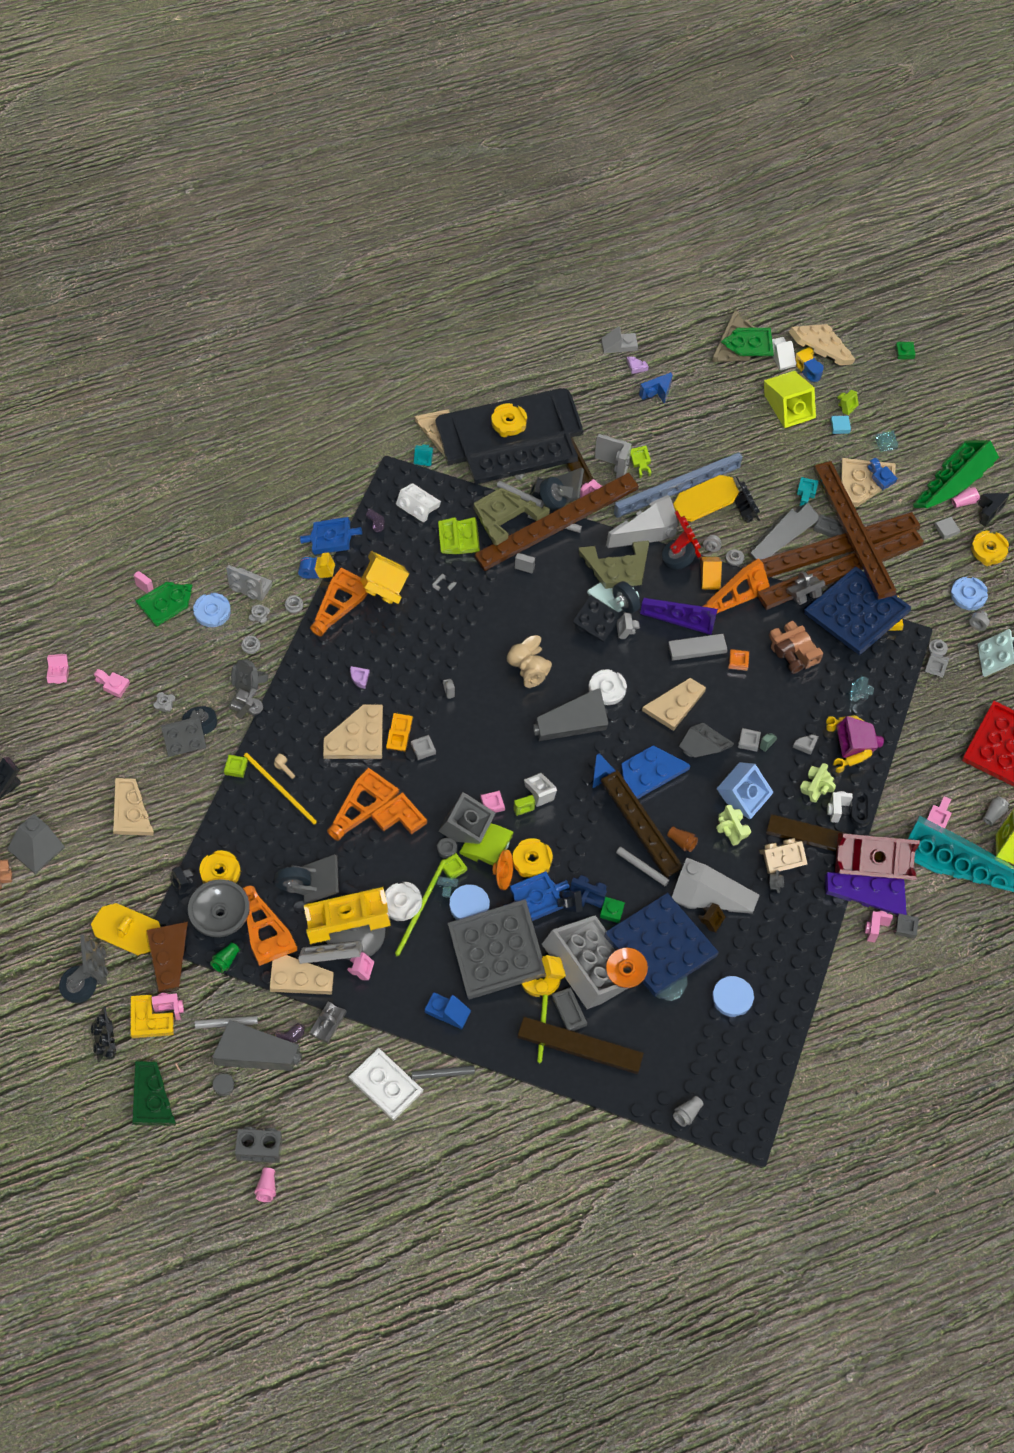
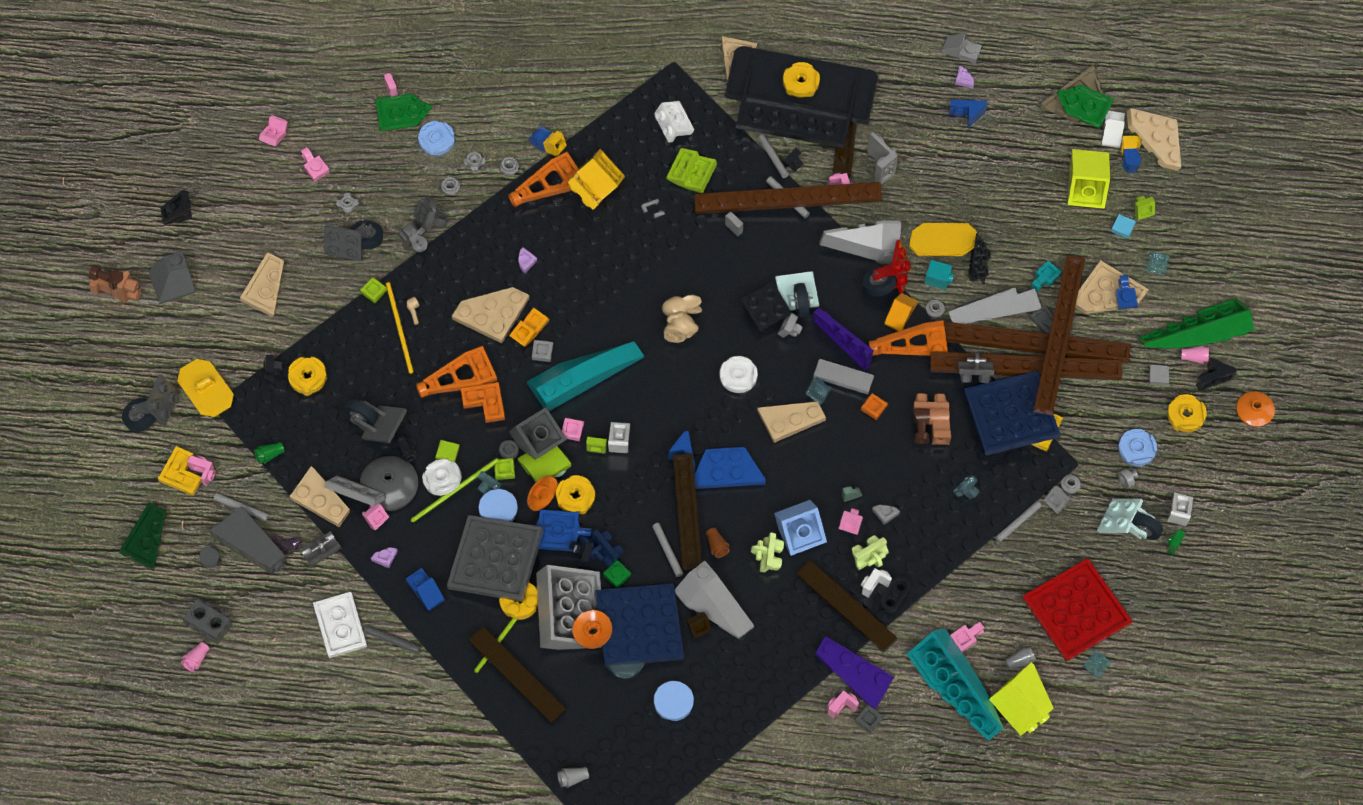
camera: 30 degrees right, 5 degrees up
(103, 1032) = (138, 466): black hinge -> none
(166, 954) = (222, 425): reddish brown wedge -> none
(214, 898) = (284, 397): dark grey dish -> none
(248, 583) = (481, 128): light grey bracket -> none
(271, 948) = (314, 463): orange plate -> none
(331, 535) = (577, 117): blue plate -> none
(365, 909) = (404, 467): yellow piece -> none
(378, 520) = (628, 121): clear purple arm -> none
(392, 875) = (447, 451): none -> lime tile
(392, 1000) = (385, 557): none -> lavender tile
(423, 455) = (707, 77): teal tile -> none
(449, 688) = (596, 307): light grey tile -> none
(467, 754) = (579, 374): none -> teal wedge
(501, 507) = (745, 161): olive wing -> none
(553, 967) = (530, 597): yellow tile -> none
(561, 489) = (801, 170): plate -> none
(569, 1009) = (526, 640): dark grey tile -> none
(574, 718) = (688, 388): dark grey slope -> none
(617, 569) = (815, 271): olive wing -> none
(641, 458) = (907, 172): lime plate -> none
(677, 485) = (926, 214): sand blue tile -> none
(685, 668) = (818, 390): none -> clear light blue tile
(703, 741) = (792, 465): dark grey slope -> none
(712, 543) = (922, 285): light grey plate -> none
(722, 527) = (939, 275): none -> teal brick
(749, 739) = (835, 484): light grey tile -> none
(776, 881) = (775, 621): dark grey plate -> none
(784, 856) = (796, 602): tan bracket -> none
(785, 764) = (851, 521): none -> bright pink tile
(856, 739) = (929, 532): magenta torso -> none
(857, 854) = (898, 651): piece -> none
(905, 350) = (1238, 181): green plate -> none
(916, 699) = (1018, 521): none -> light grey bar

